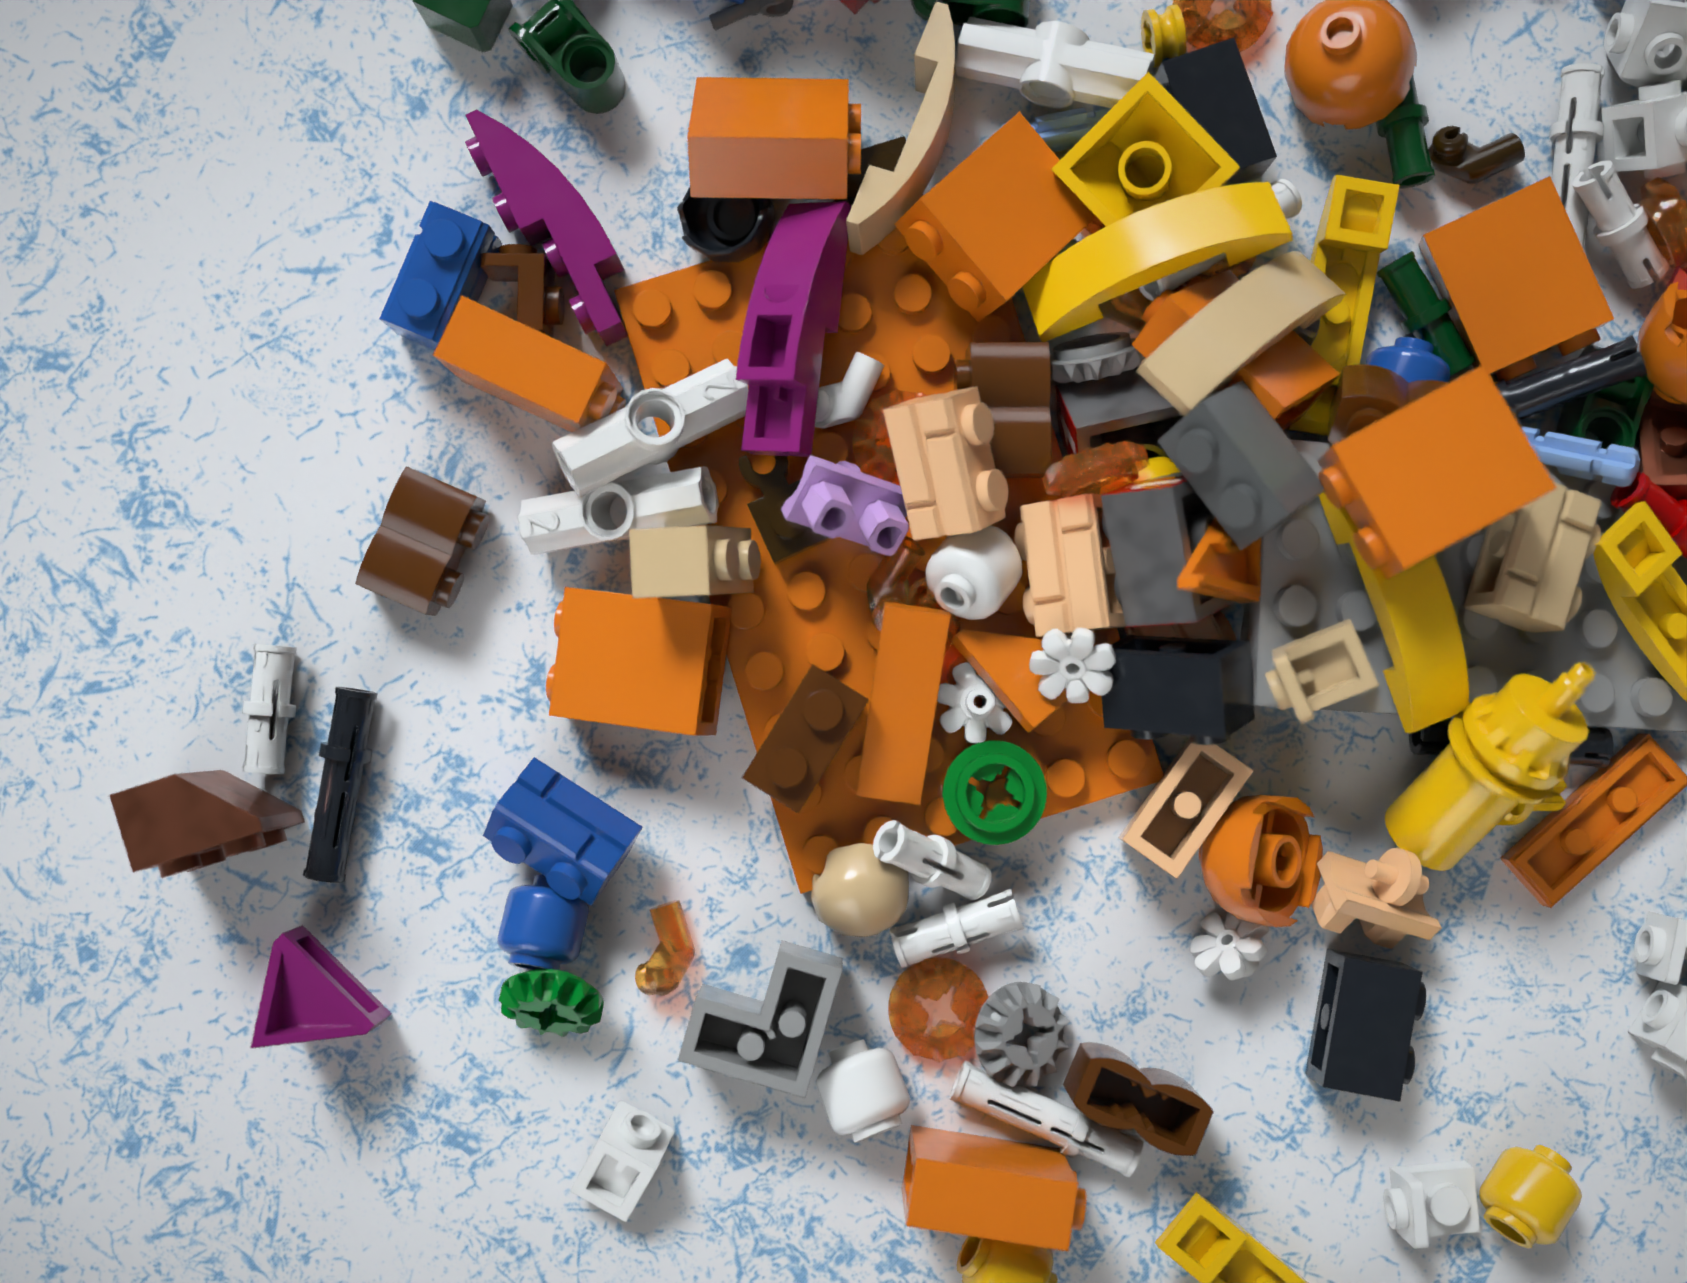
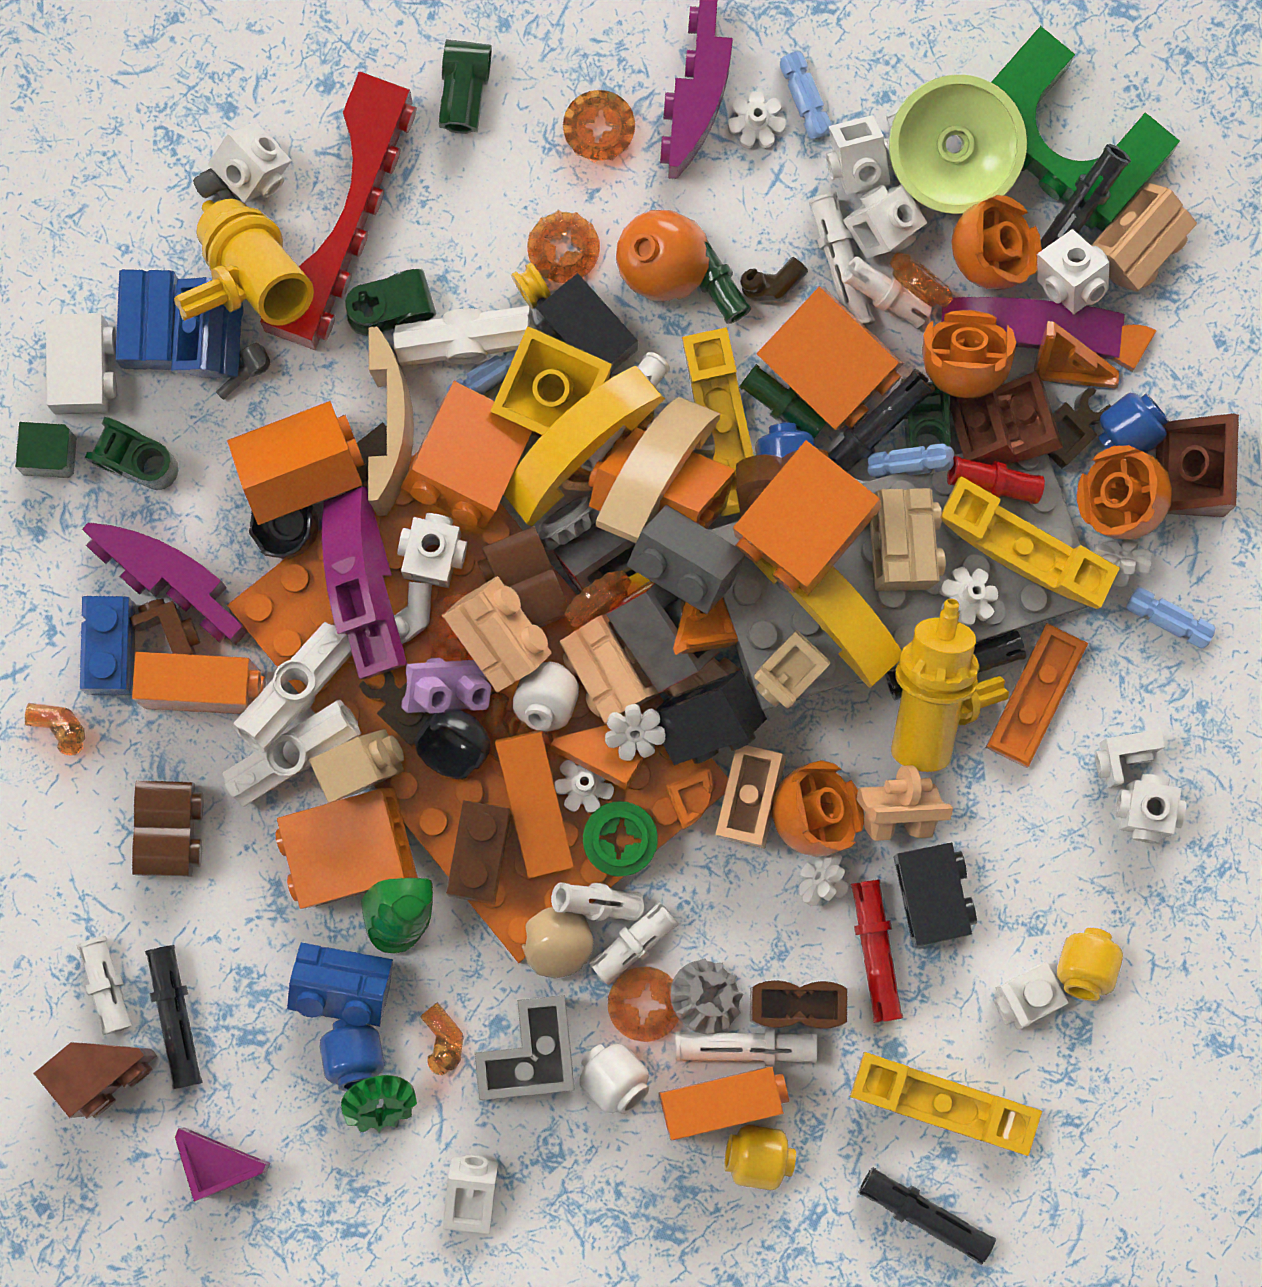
camera: 25 degrees left, 5 degrees down
(348, 357) = (61, 723): none -> clear orange arm
(671, 771) = (397, 912): none -> green piece
(829, 583) = (453, 743): none -> black hair
(900, 342) = (431, 566): none -> white brick
(1106, 775) = (691, 797): none -> orange tile
(1261, 1063) = (876, 950): none -> red pin
(1580, 645) = (970, 594): none -> white plant

